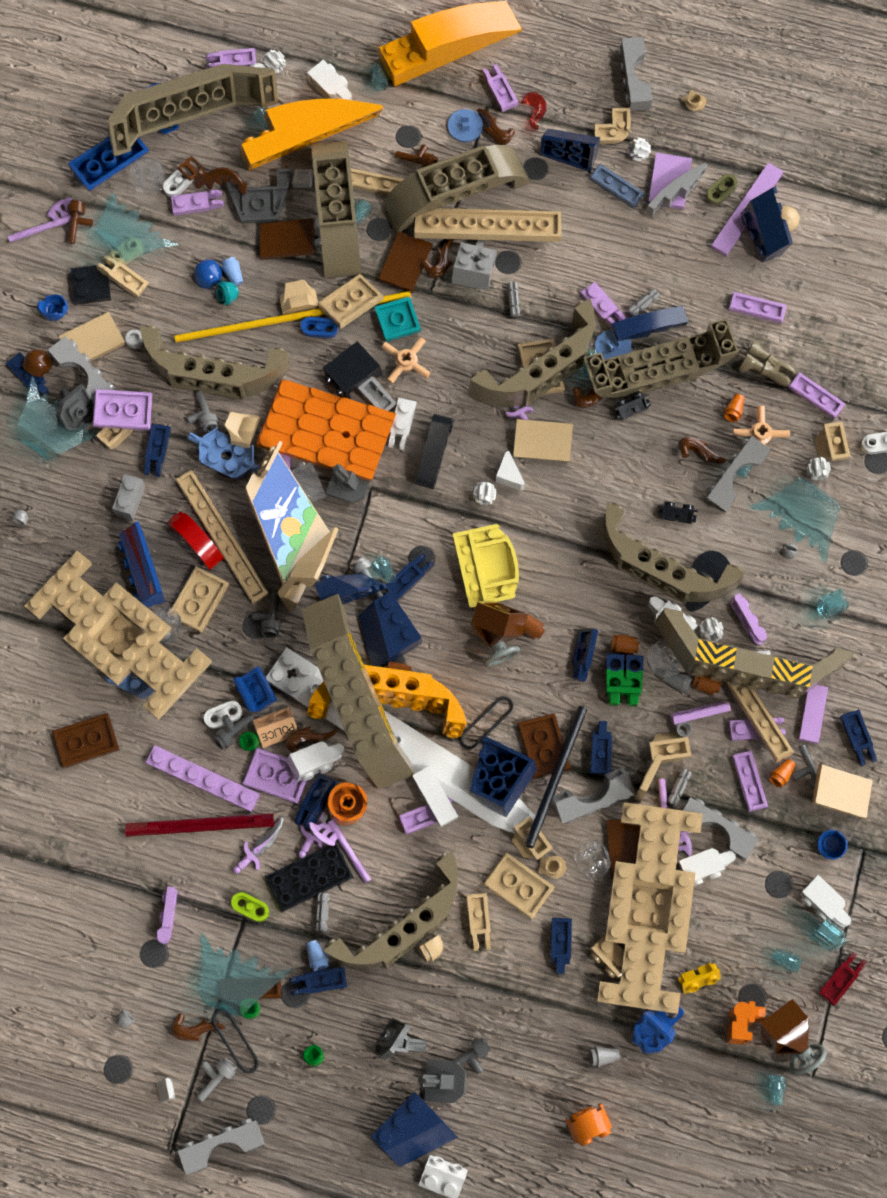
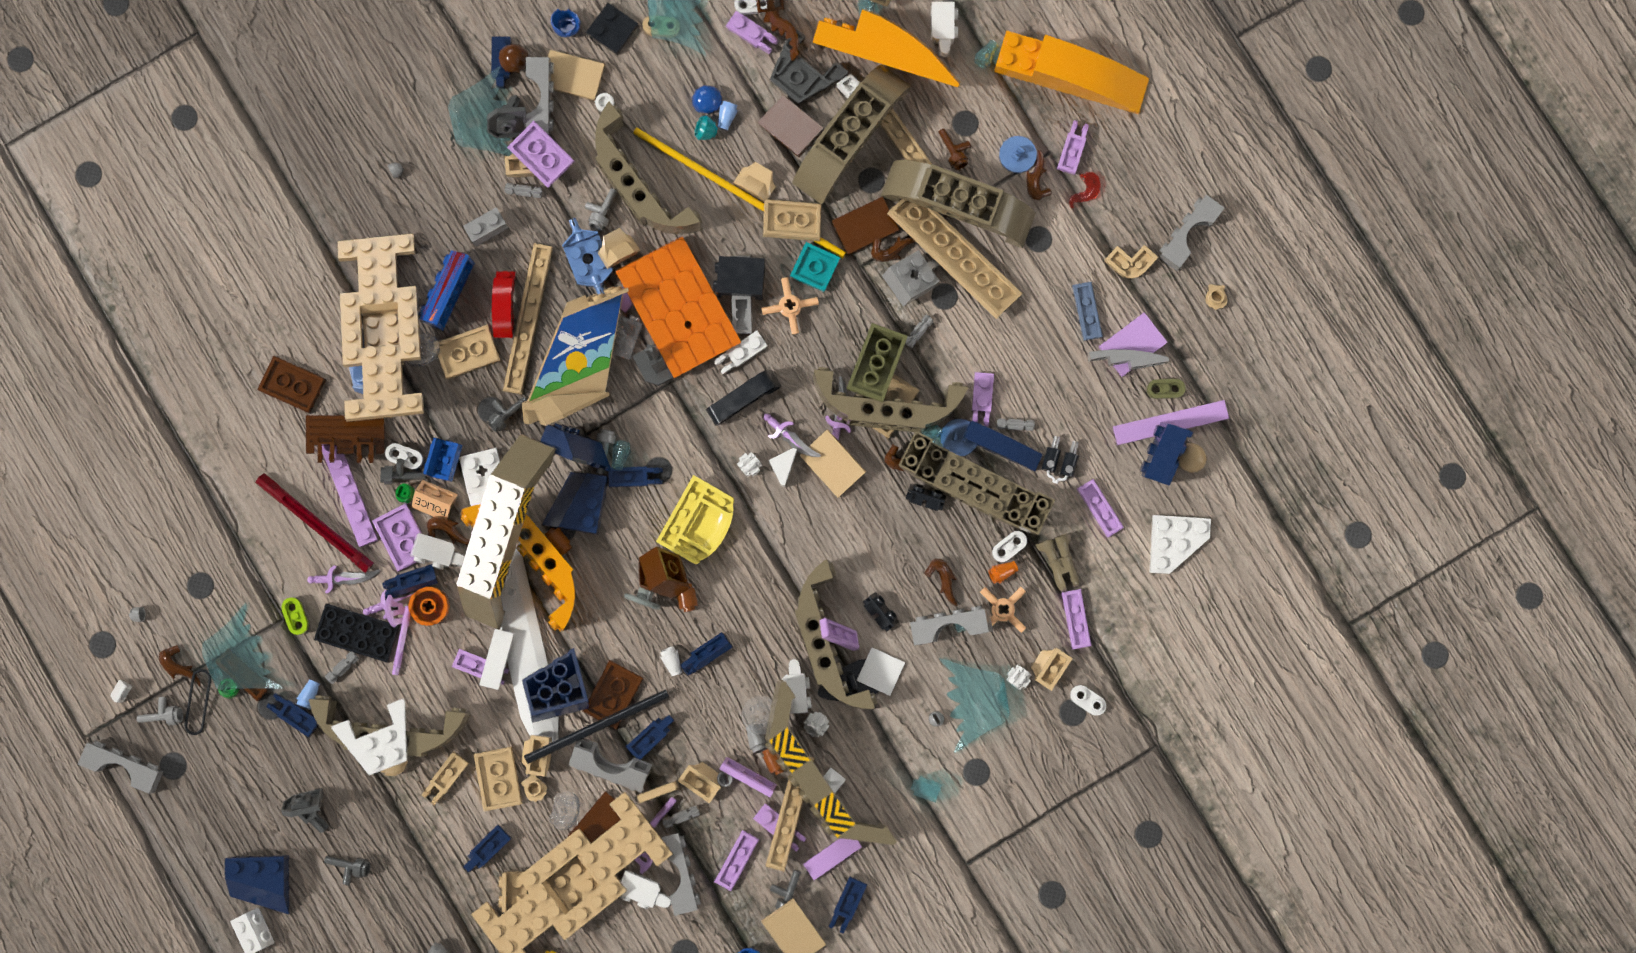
camera: 45 degrees right, 10 degrees up
(123, 276) = (640, 46): tan hinge -> none
(131, 449) = (523, 190): none -> light grey axle
(157, 448) = (542, 206): dark blue hinge -> none
(162, 738) = (336, 431): none -> reddish brown hinge
(167, 916) = (231, 568): lavender hinge -> none
(313, 1055) = (242, 763): green tile -> none
(320, 326) = (750, 220): blue plate -> none
(362, 209) = (868, 153): clear light blue cone -> none
(414, 934) = (381, 748): none -> white wing
(443, 1081) = (313, 867): dark grey piece -> none
(493, 727) = (589, 630): black piece -> none
(495, 449) = (789, 436): none -> piece
(507, 338) = (877, 362): none -> olive slope
(562, 681) = (671, 660): none -> white cone
(570, 148) = (1077, 248): dark blue wedge -> none
(623, 685) = (712, 704): green hips -> none
(625, 644) = (743, 675): dark orange brick -> none
(639, 149) = (1131, 298): white gear -> none
(667, 548) = (839, 634): none -> lavender tile
(691, 302) = (1069, 463): none -> black piece
(718, 553) = (880, 671): none -> white sticker
(722, 388) = (1009, 547): none -> white plate
(748, 620) = (852, 743): lavender hinge -> none
(781, 774) = (765, 877): orange cone -> none
(829, 283) = (1175, 540): none -> white plate

